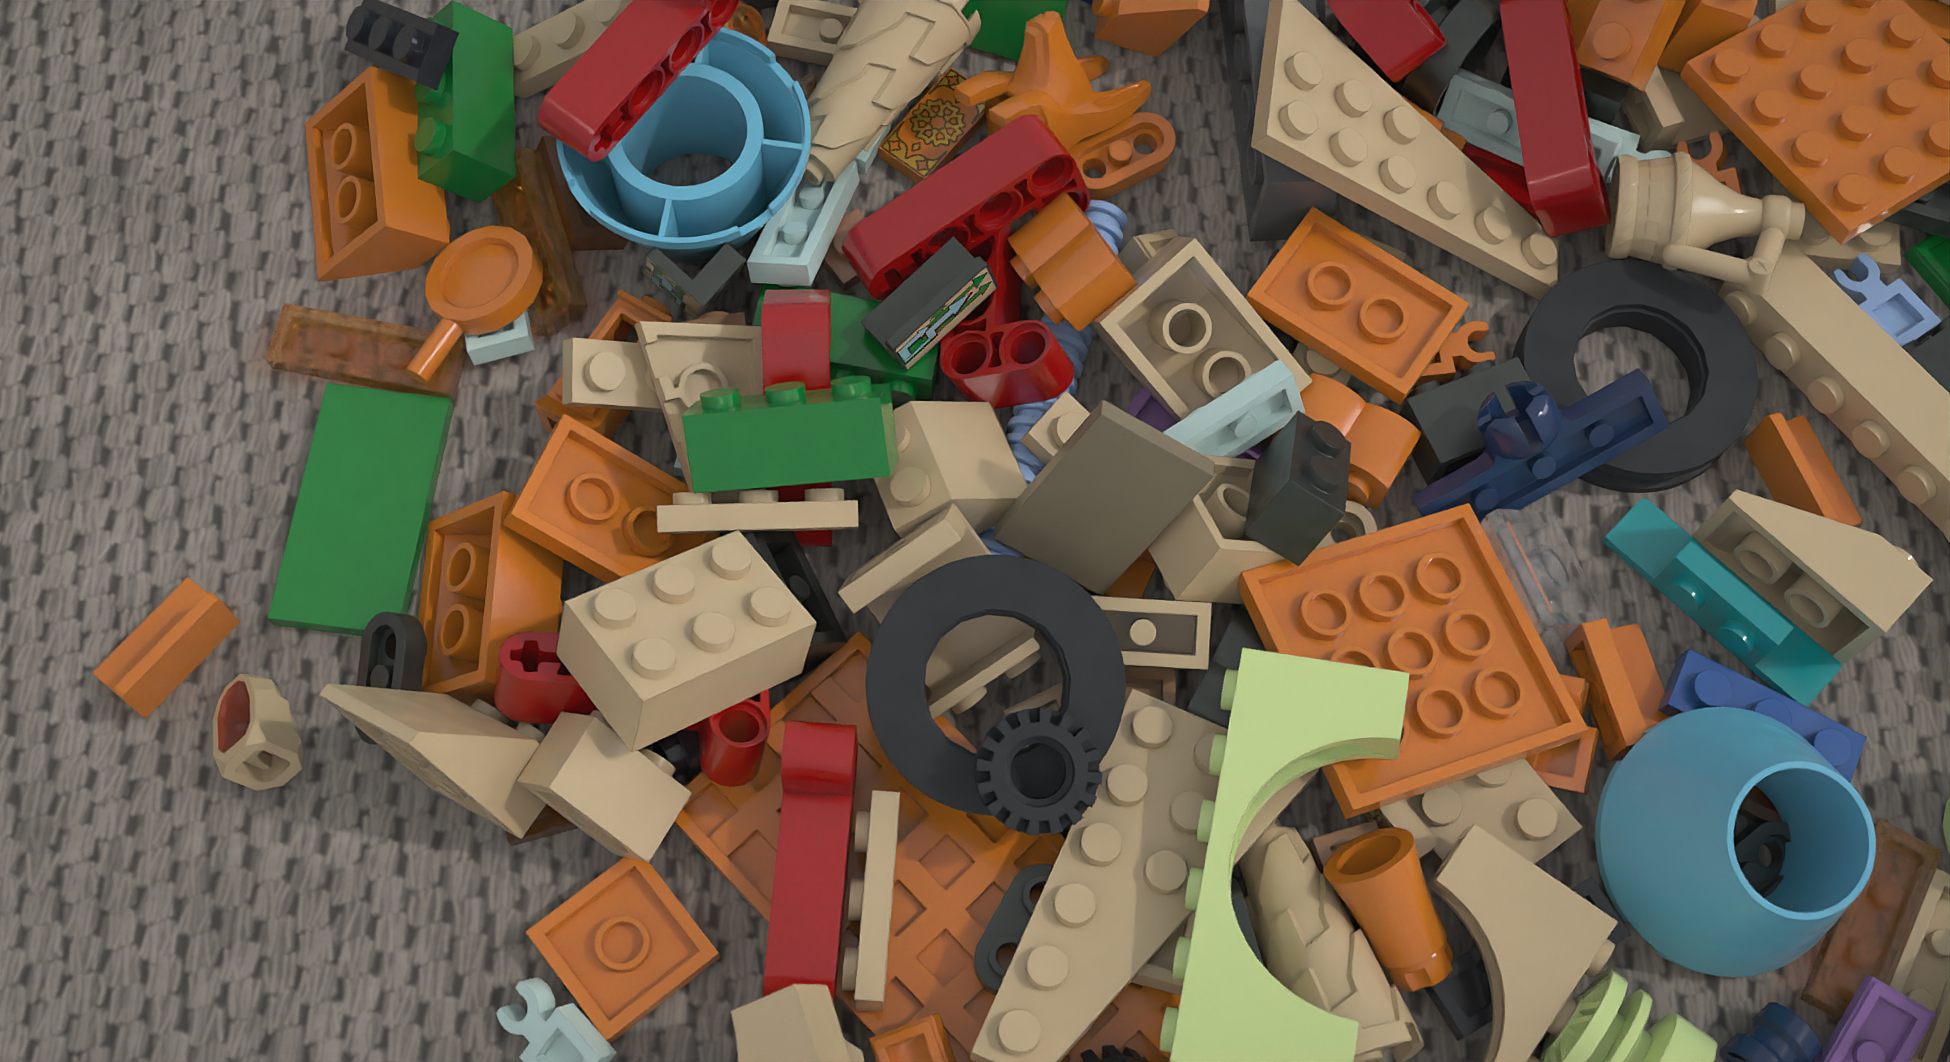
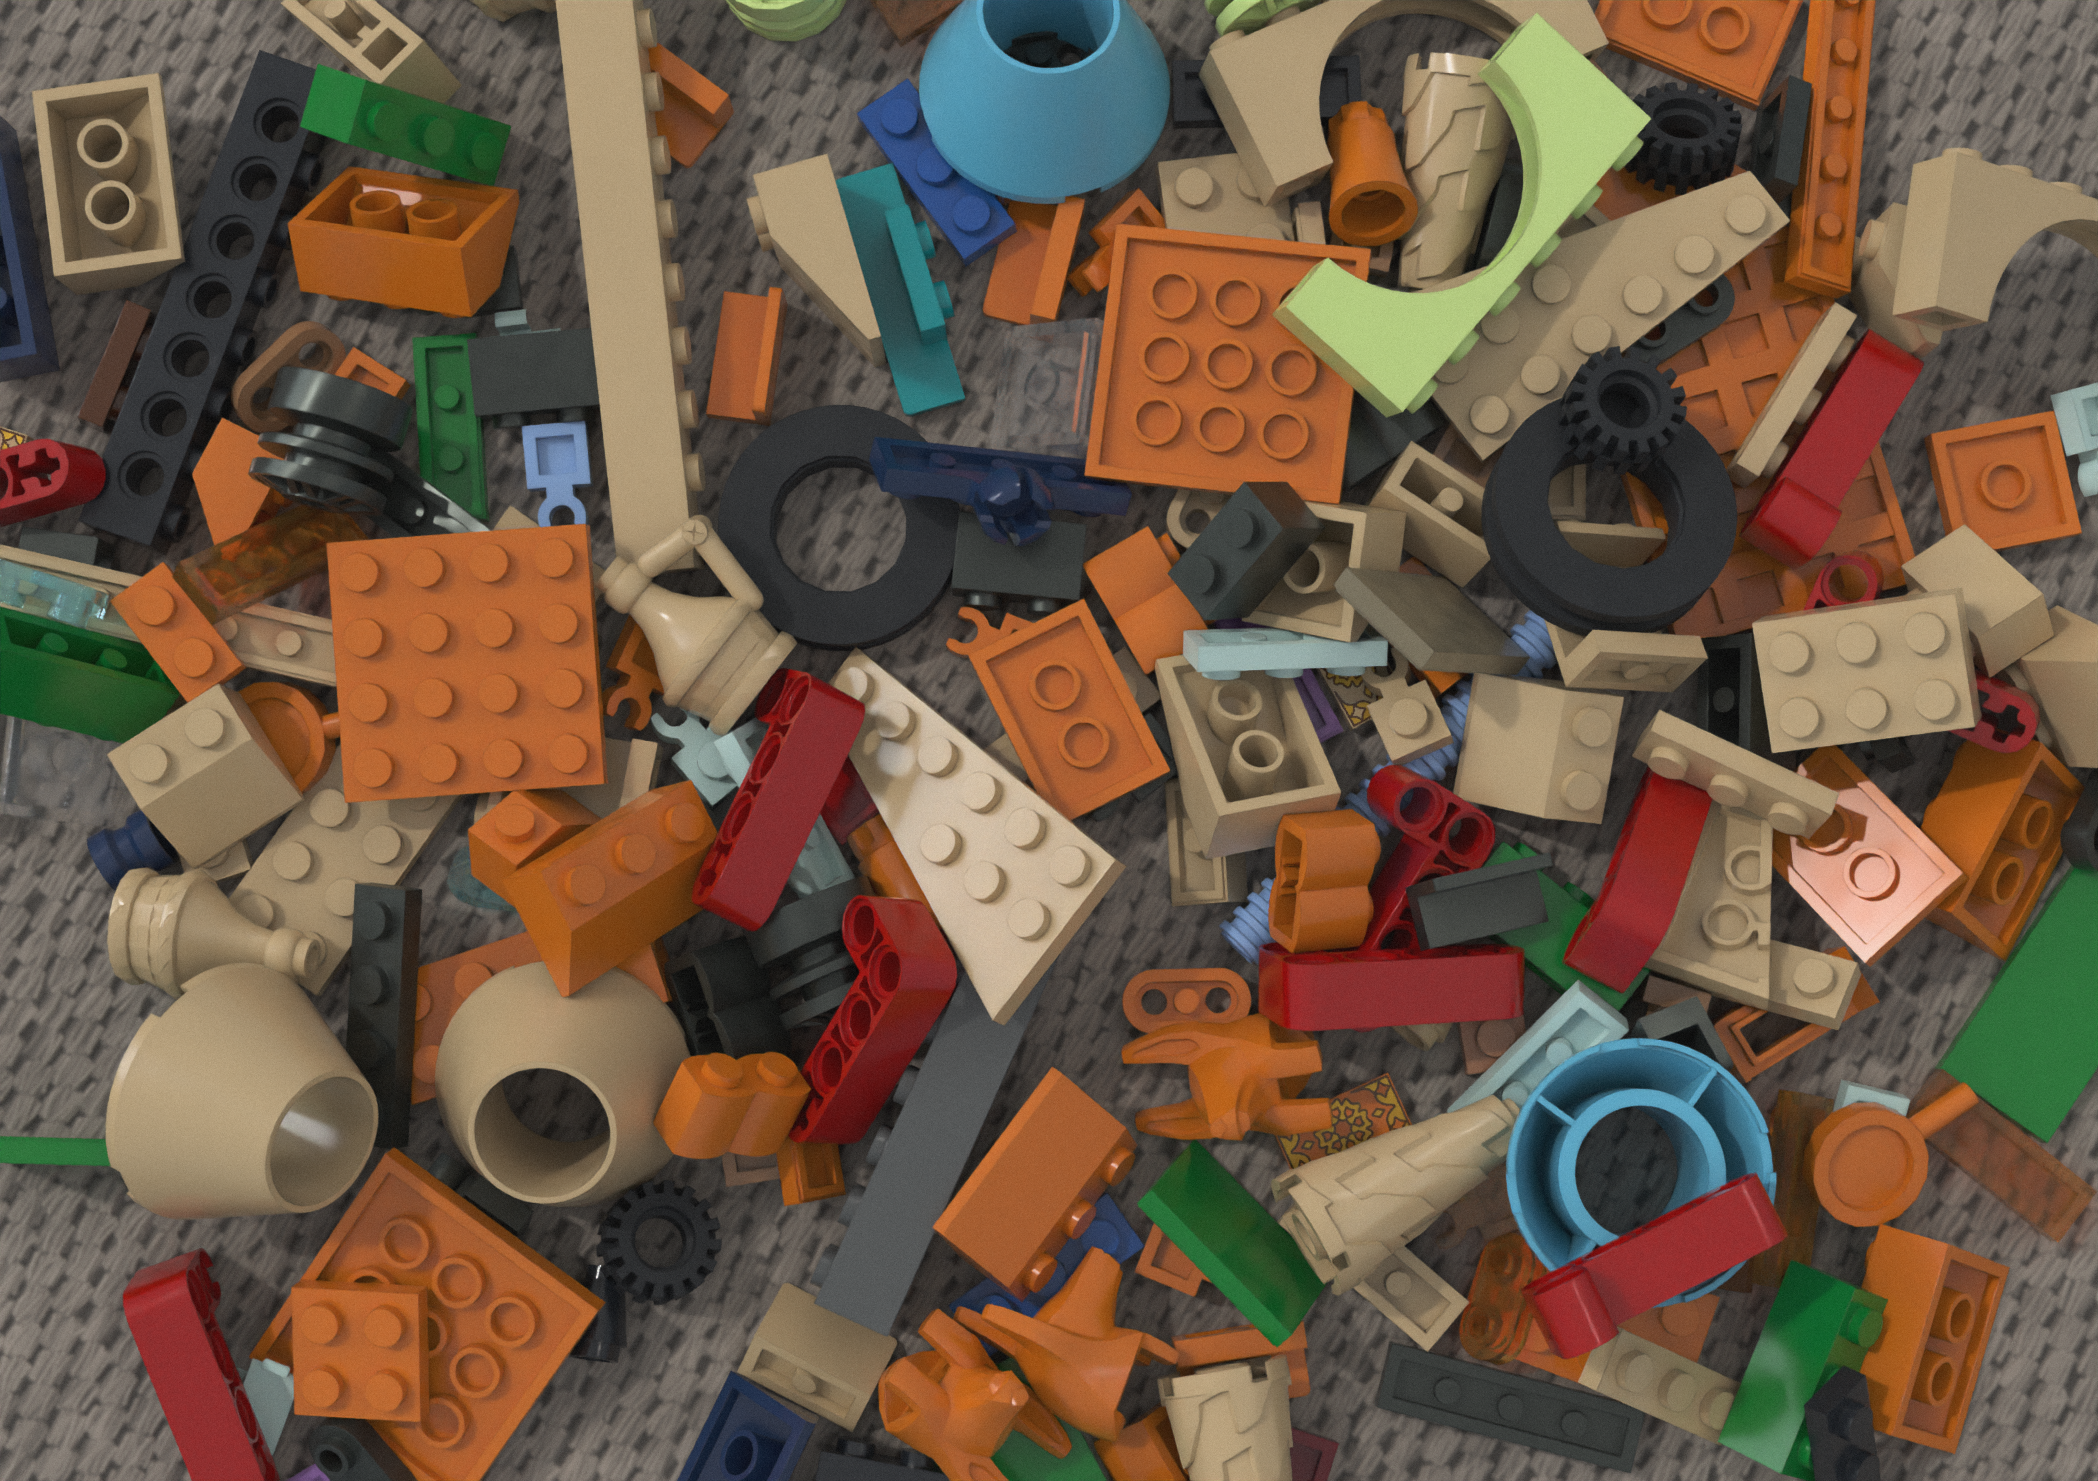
camera: 150 degrees left, 15 degrees up
(791, 435) = (1686, 812): green brick -> none

